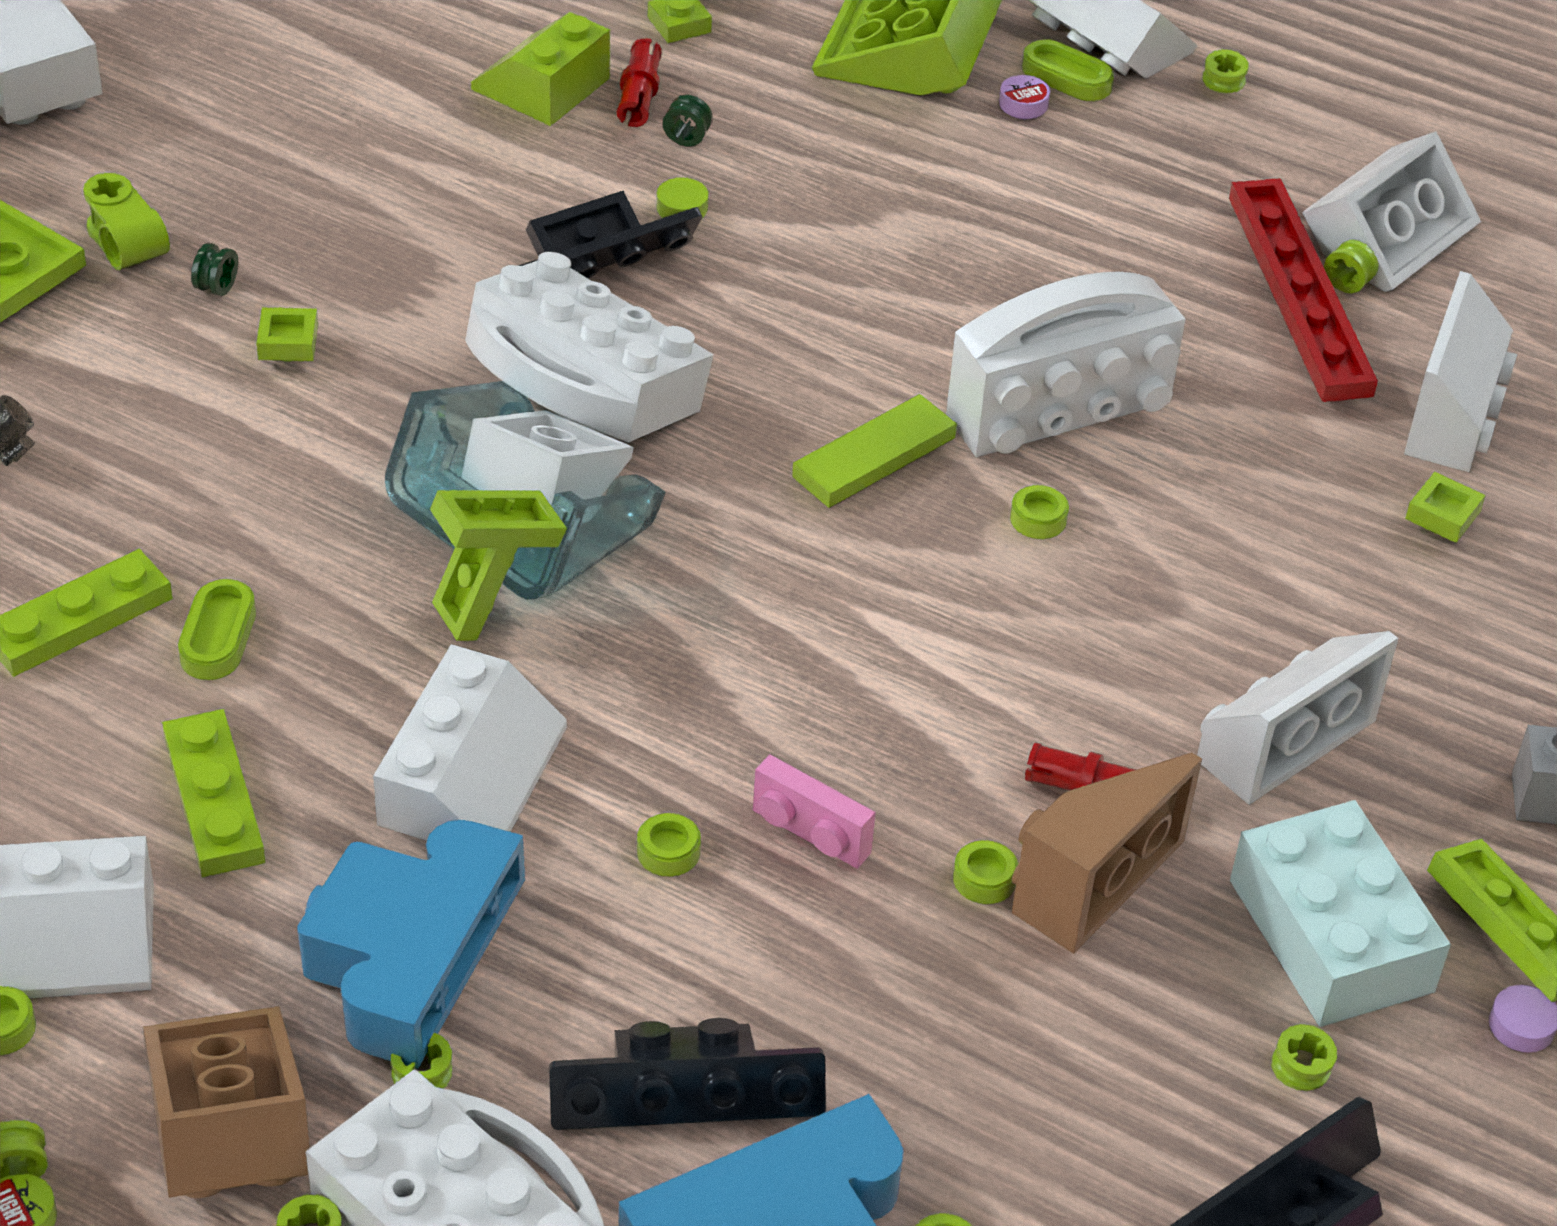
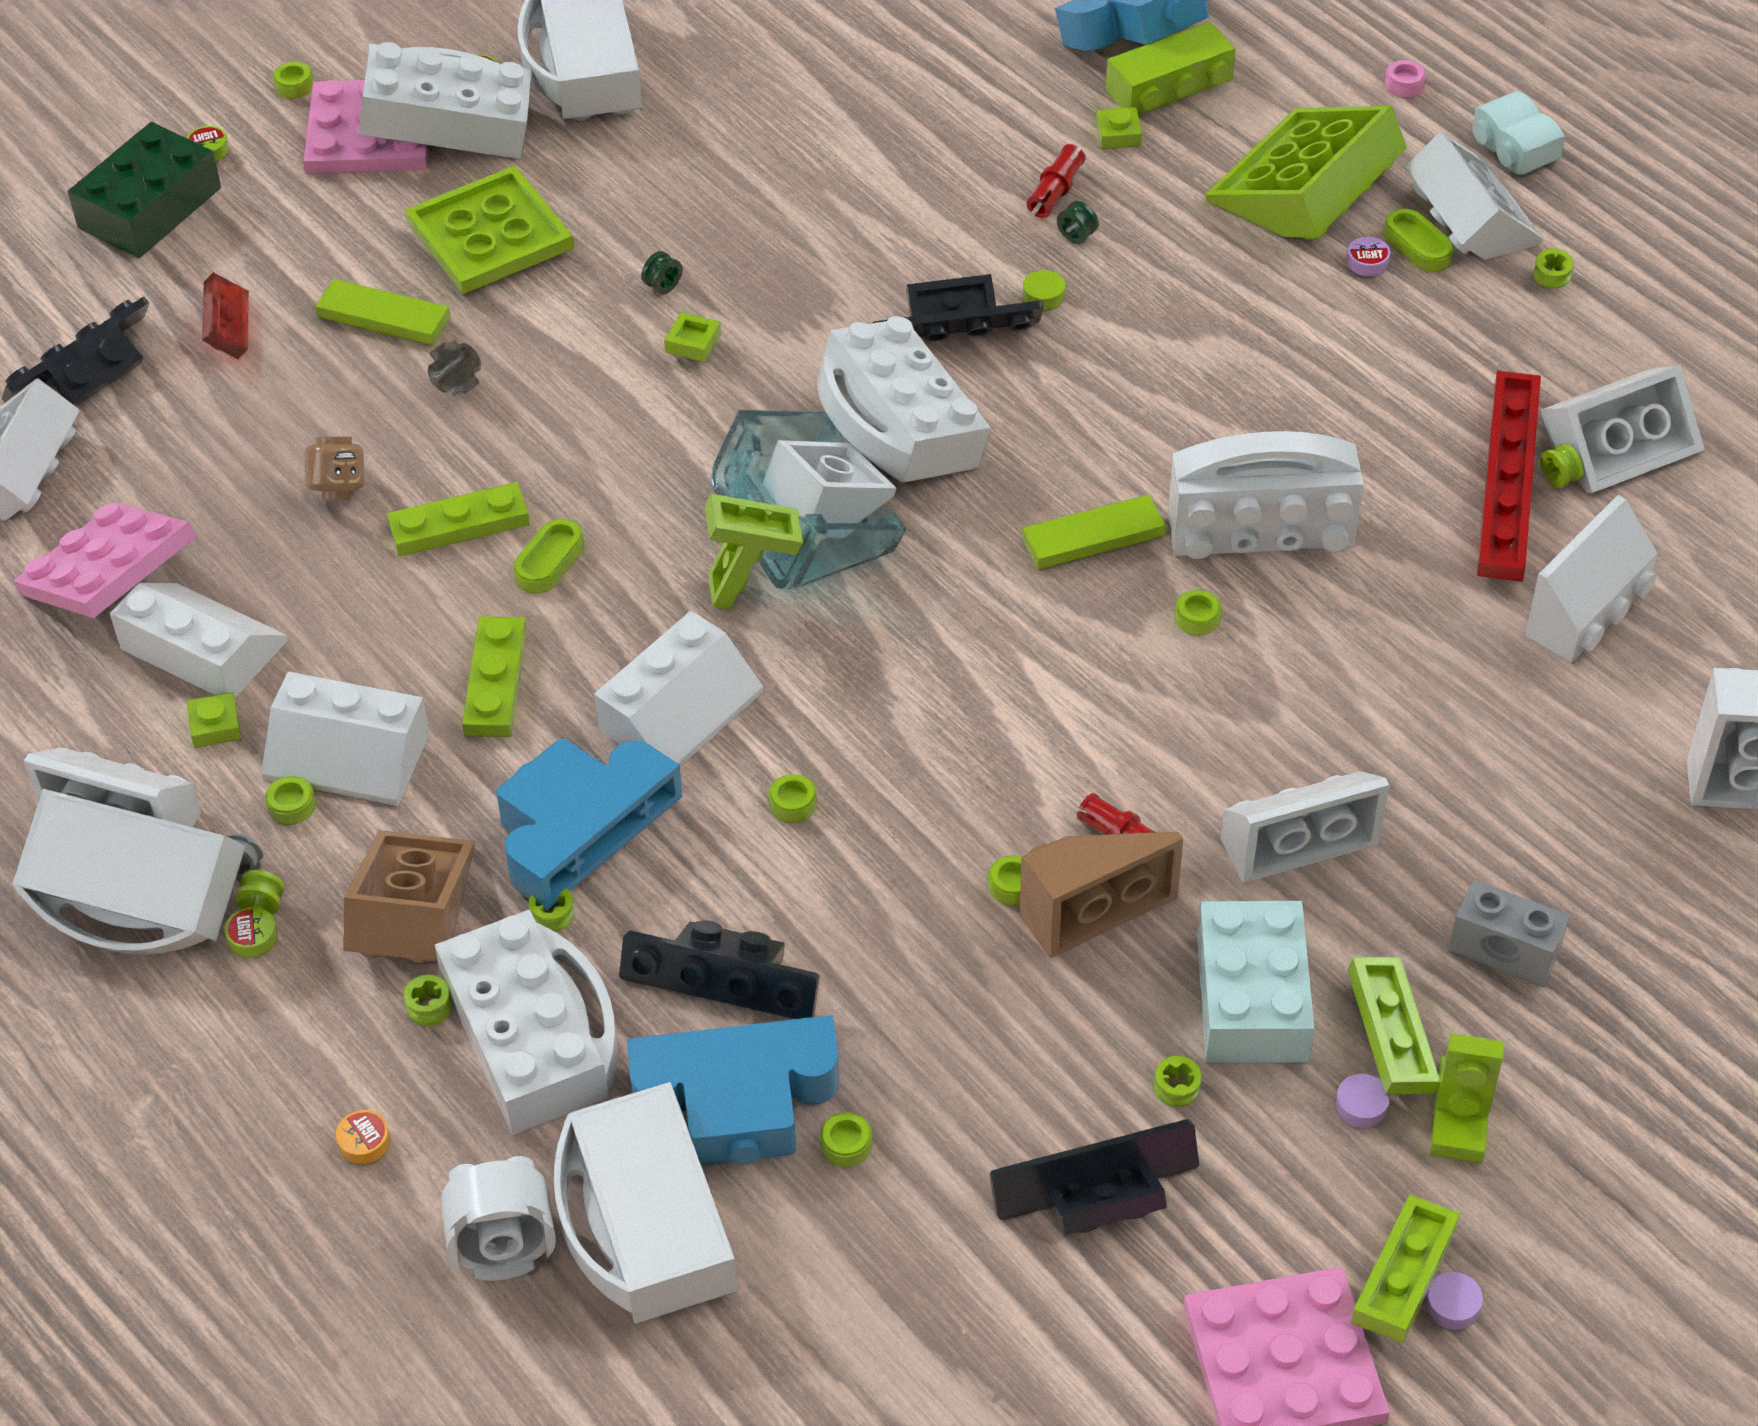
camera: 25 degrees right, 5 degrees up
(123, 221) = (610, 219): lime piece -> none
(550, 69) = (990, 156): lime slope -> none
(813, 811) = (910, 810): bright pink plate -> none
(1445, 507) = (1526, 687): lime plate -> none

